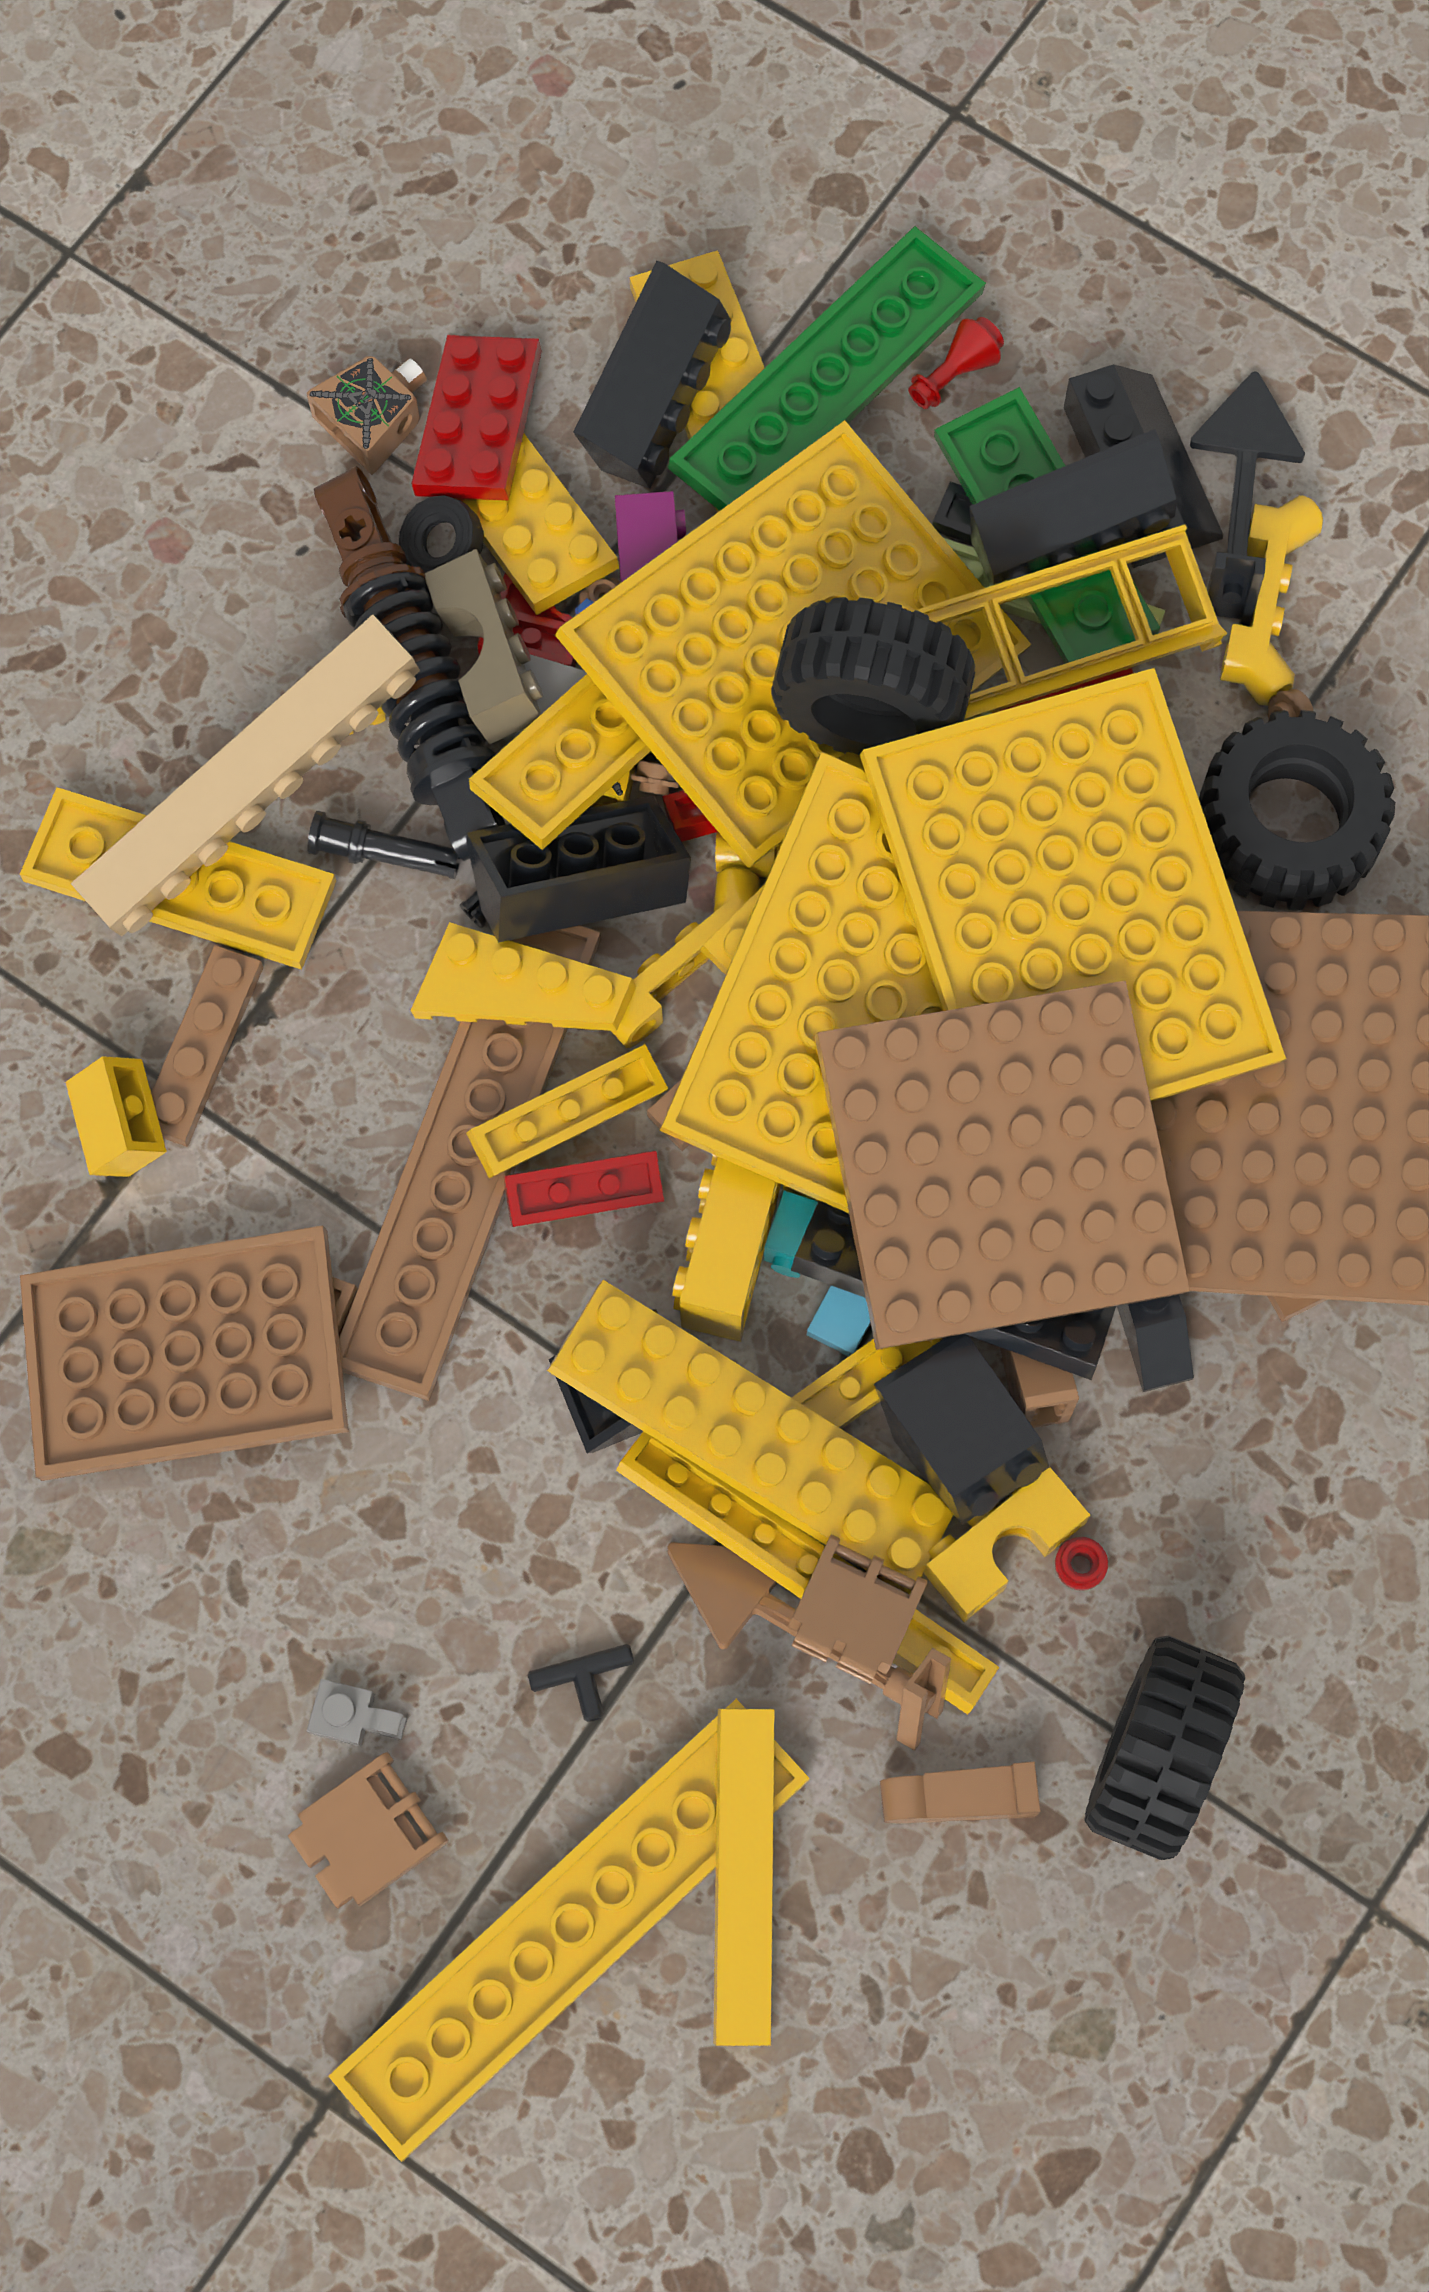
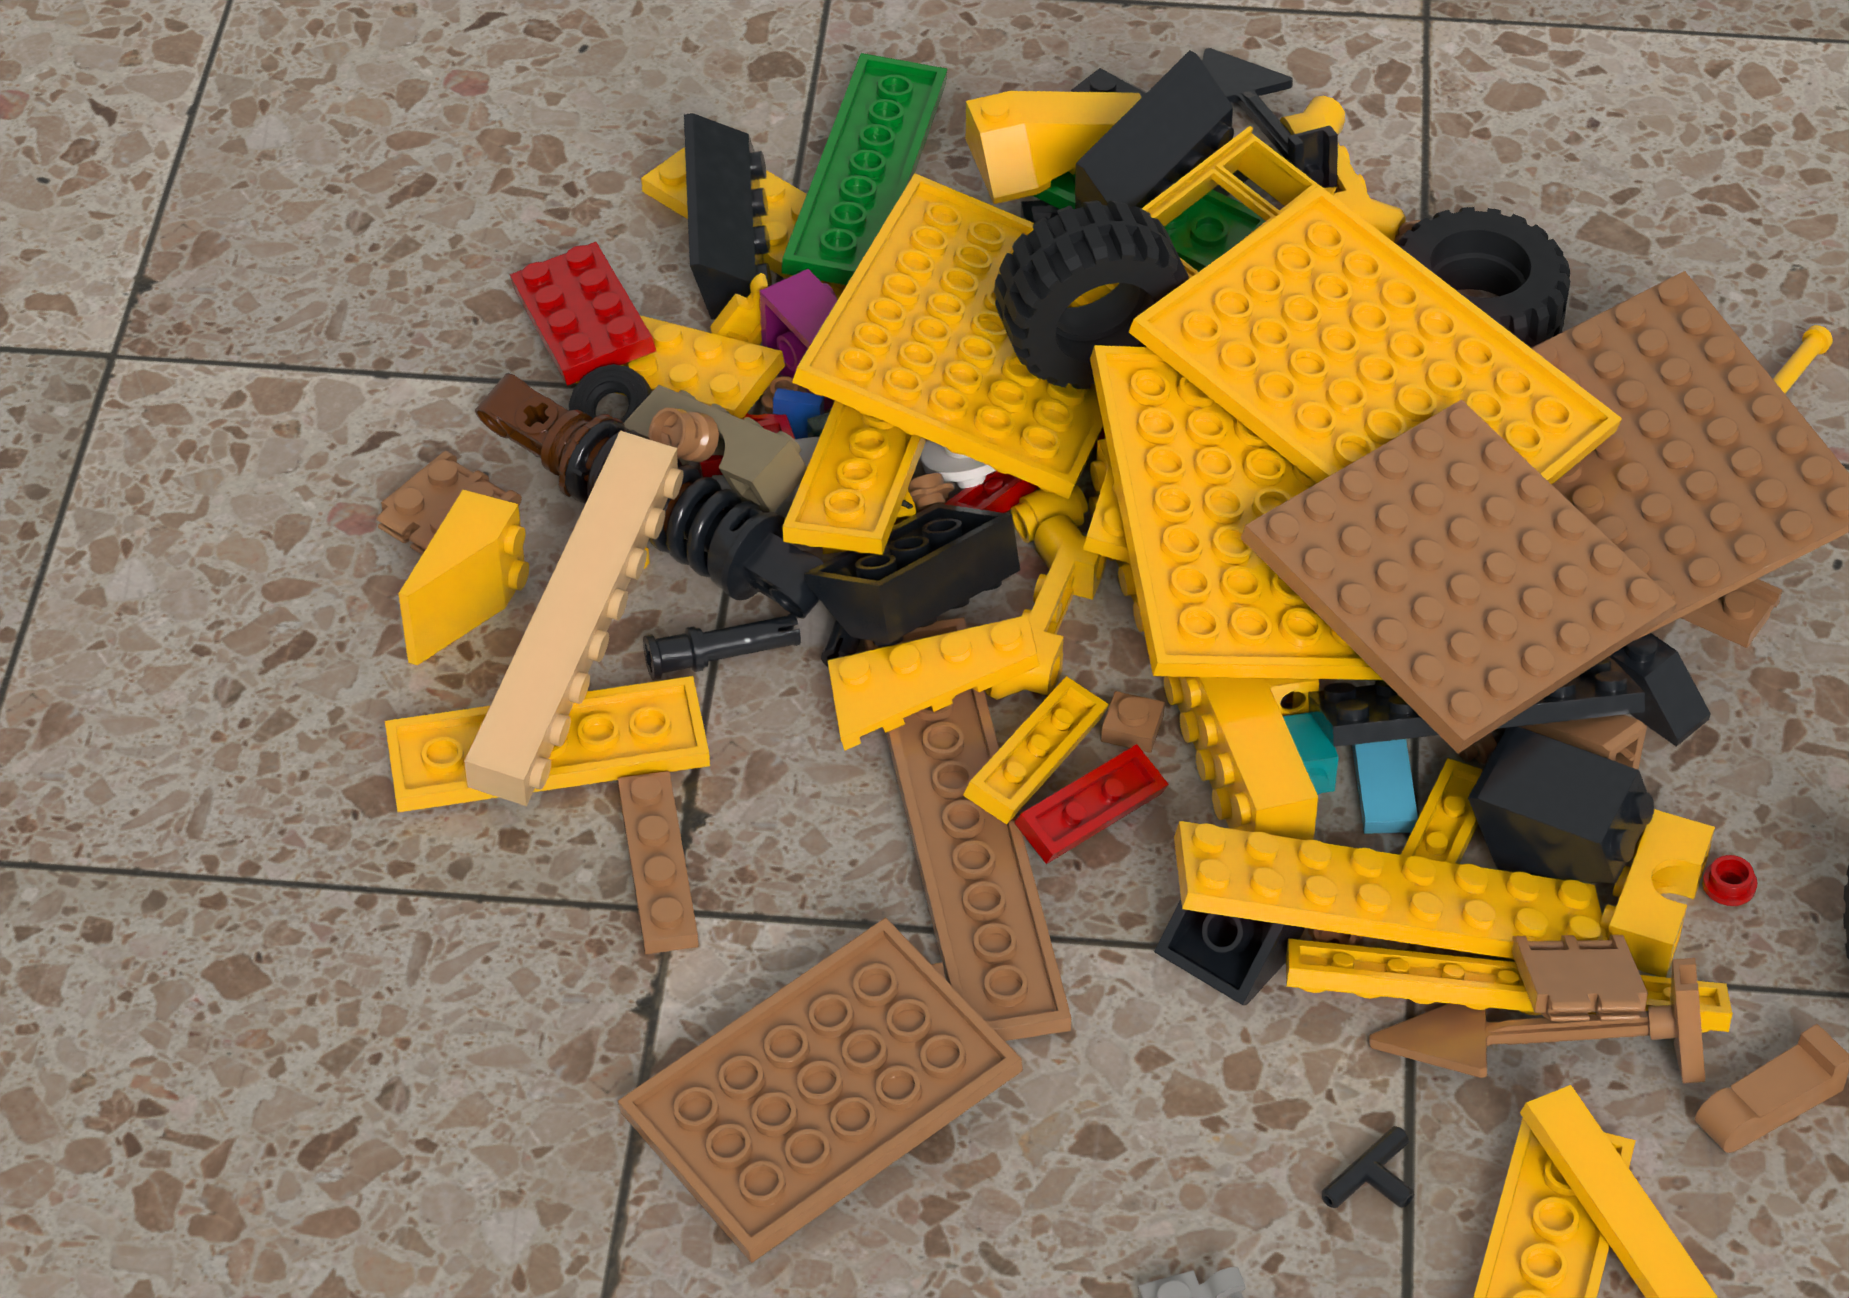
camera: 30 degrees left, 25 degrees down
(115, 1116) = (622, 936): yellow brick -> none
(196, 670) = (463, 574): none -> yellow slope
(243, 575) = (426, 498): none -> medium nougat plate
(369, 408) = (473, 346): torso -> none
(444, 627) = (690, 432): none -> medium nougat wheel
(599, 496) = (742, 315): none -> yellow plate
(972, 348) = (952, 155): red piece -> none
(995, 433) = (1037, 135): none -> yellow wedge

